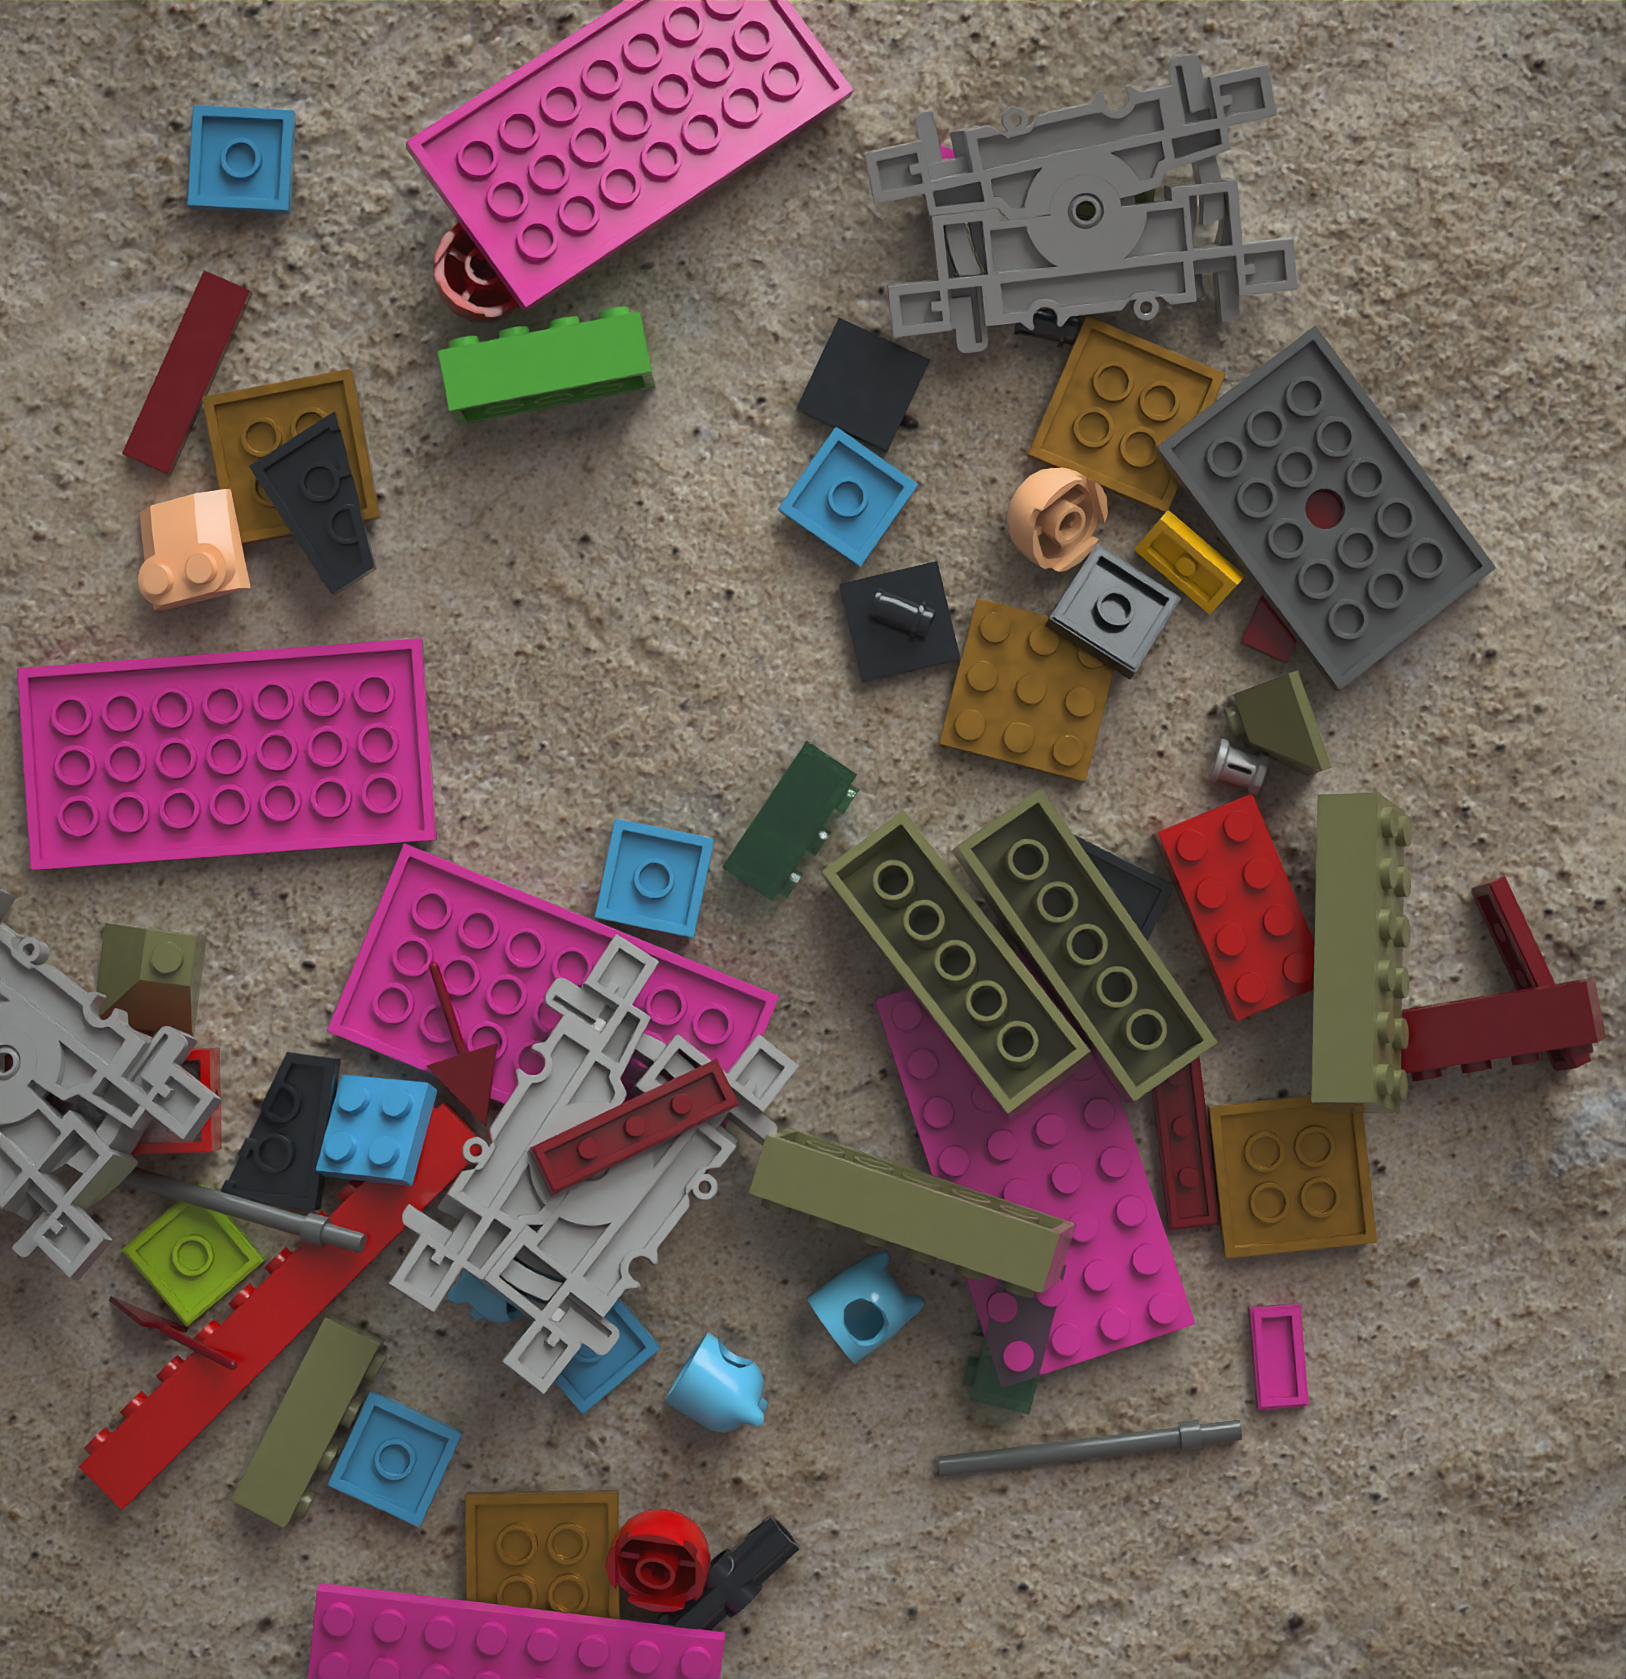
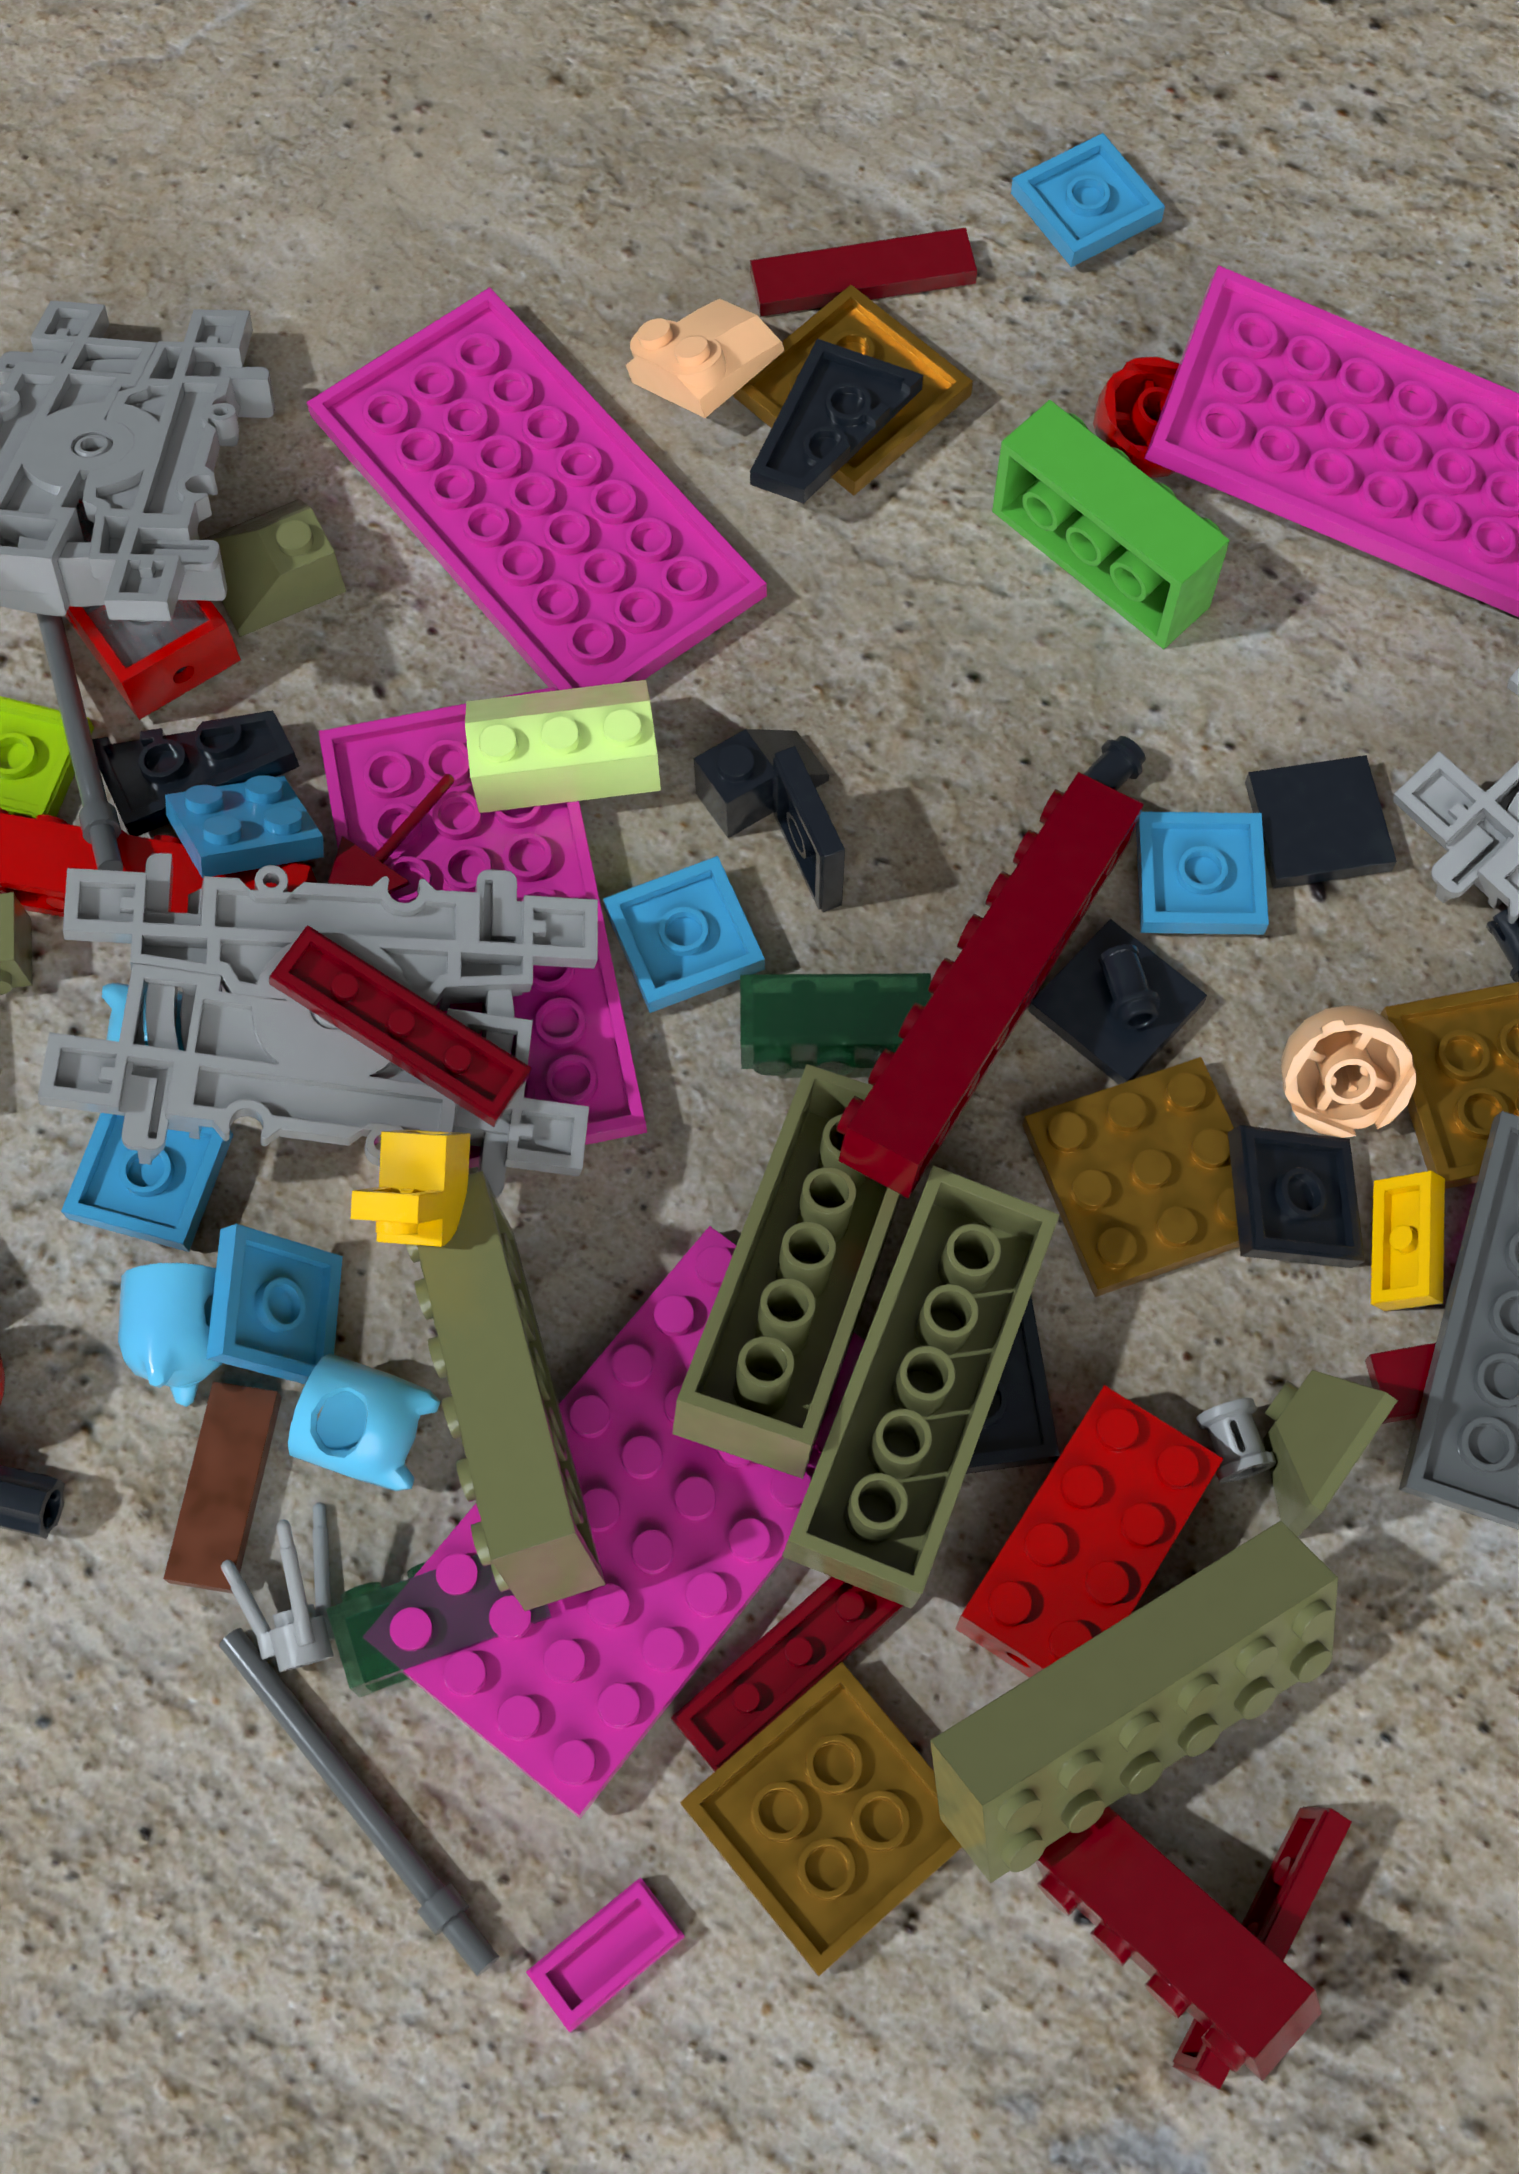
camera: 60 degrees right, 20 degrees down
(457, 870) = (561, 746): none -> yellowish green slope
(569, 744) = (737, 776): none -> black slope
(645, 749) = (808, 829): none -> black tile
(730, 503) = (1118, 762): none -> black pin
(749, 1315) = (273, 1304): none -> dark azure plate
(760, 1186) = (418, 1189): none -> yellow brick
(838, 1415) = (223, 1485): none -> copper tile
(843, 703) = (988, 986): none -> dark red brick
(967, 1419) = (299, 1633): none -> light grey plant

